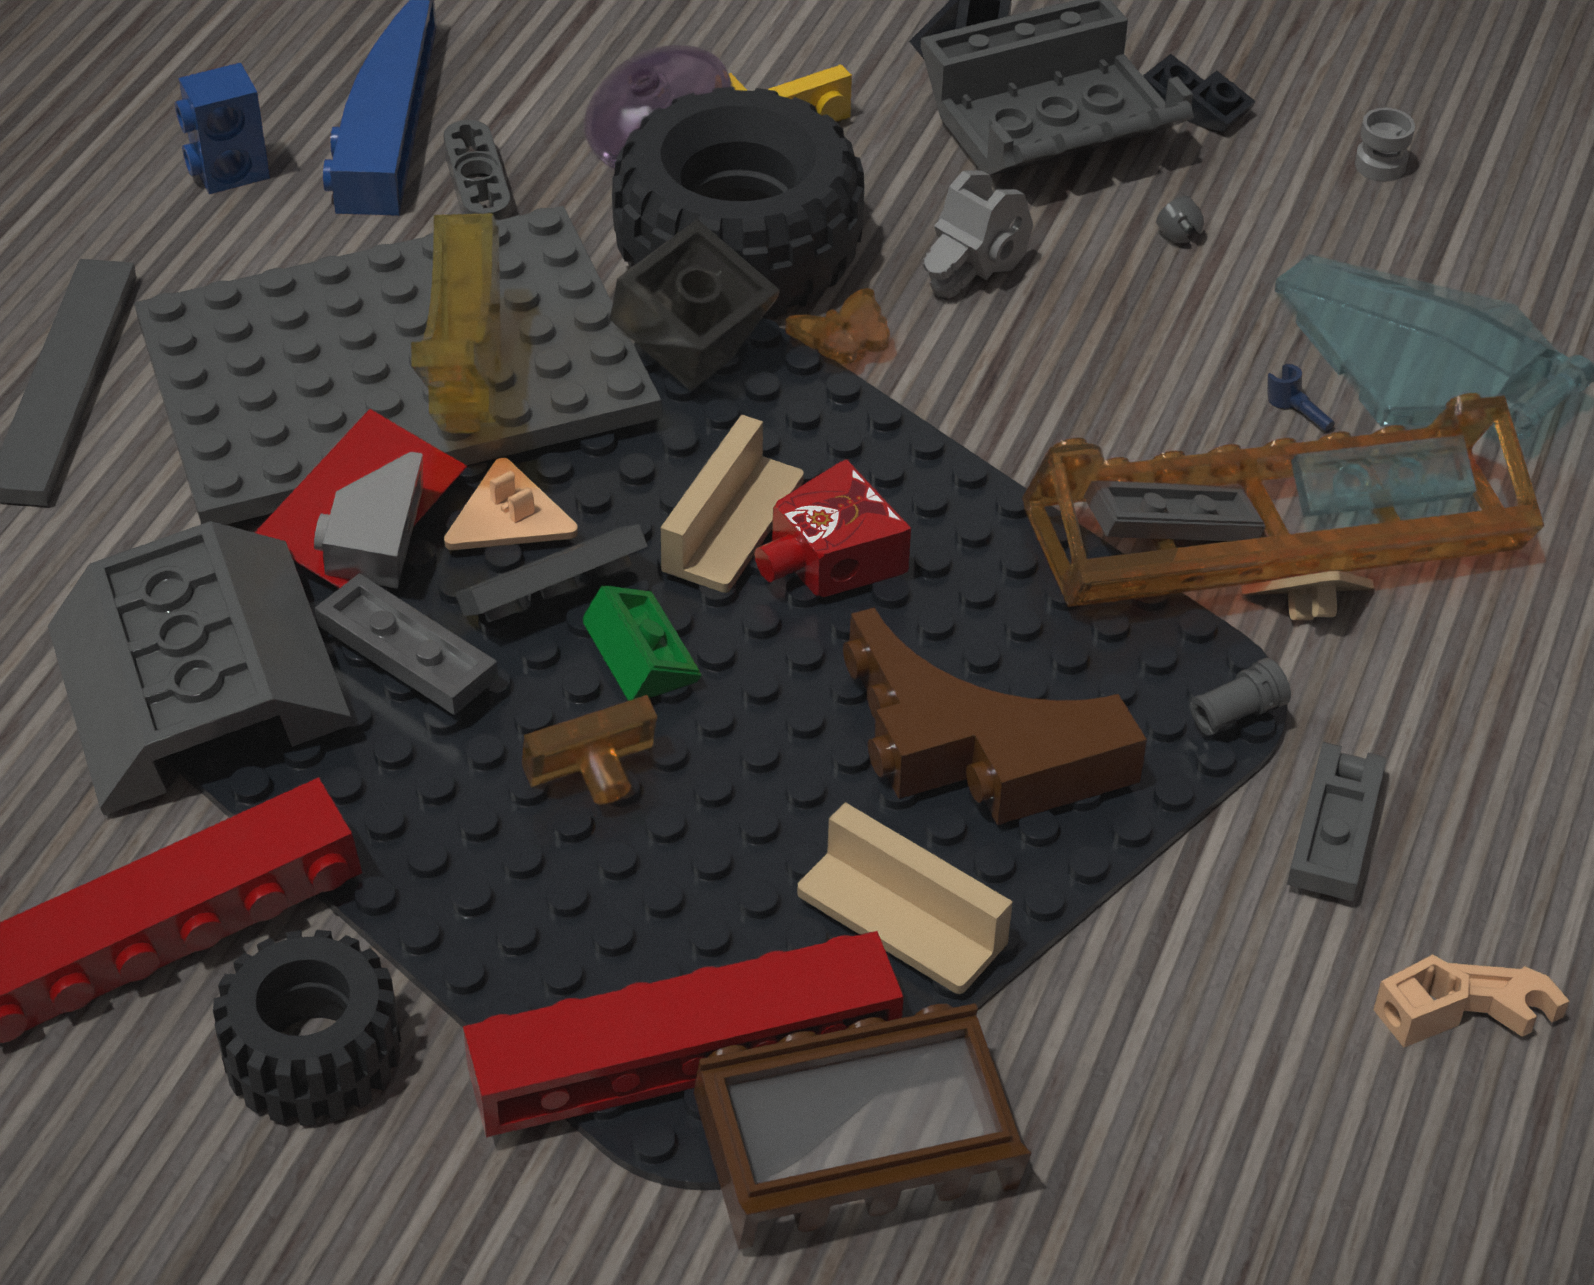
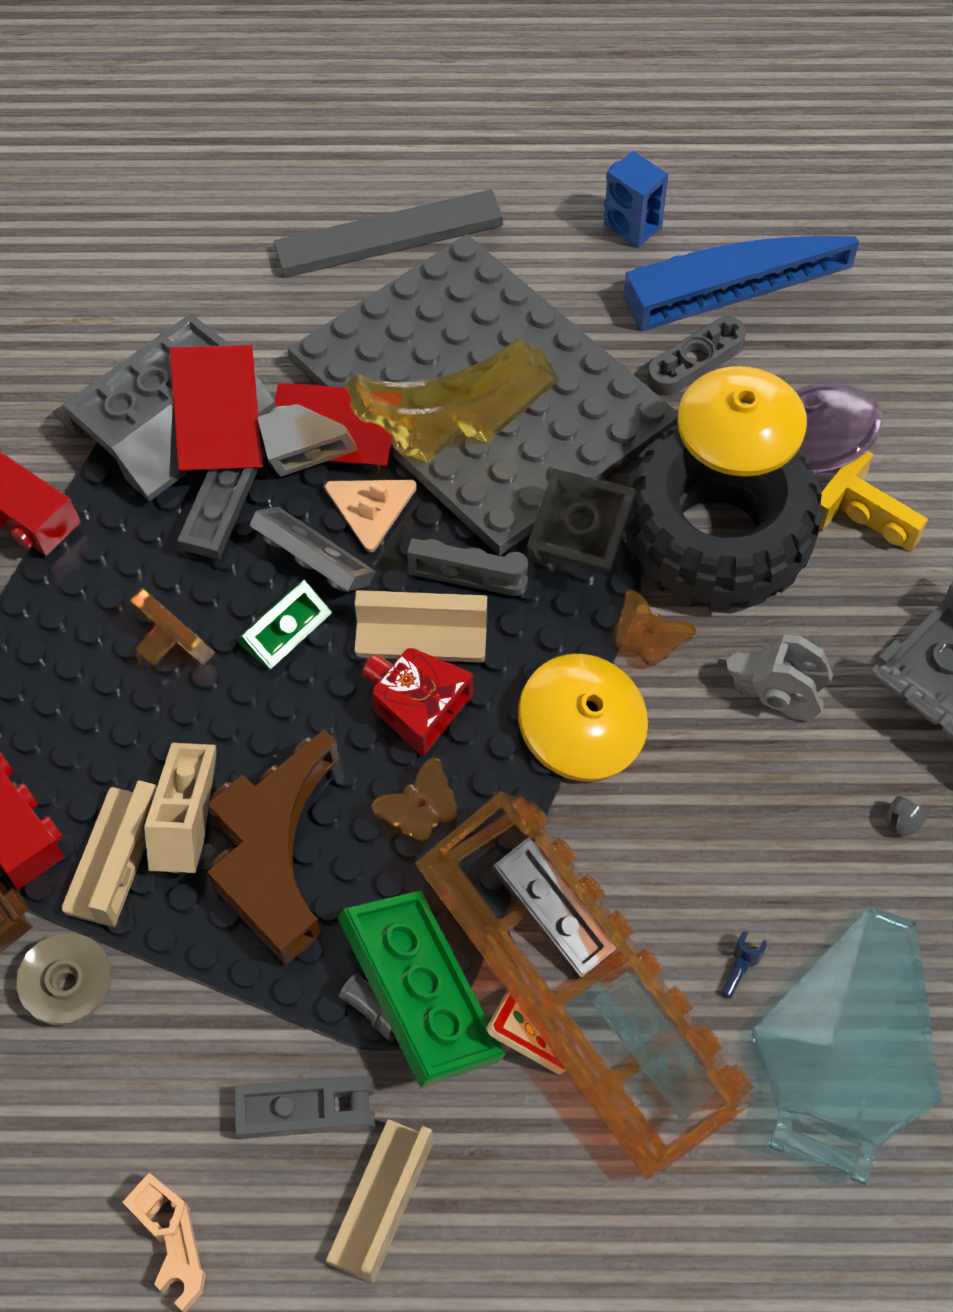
camera: 70 degrees right, 15 degrees up
(276, 578) = (215, 407): none -> red piece
(658, 110) = (736, 435): none -> yellow dish
(671, 437) = (468, 567): none -> dark grey plate
(911, 795) = (180, 809): none -> tan slope
(931, 415) = (570, 735): none -> yellow dish
(984, 576) = (429, 789): none -> clear orange animal
(1066, 992) = (53, 961): none -> dark tan dish
(1238, 638) = (420, 987): none -> green tile
(1487, 773) = (380, 1200): none -> tan panel

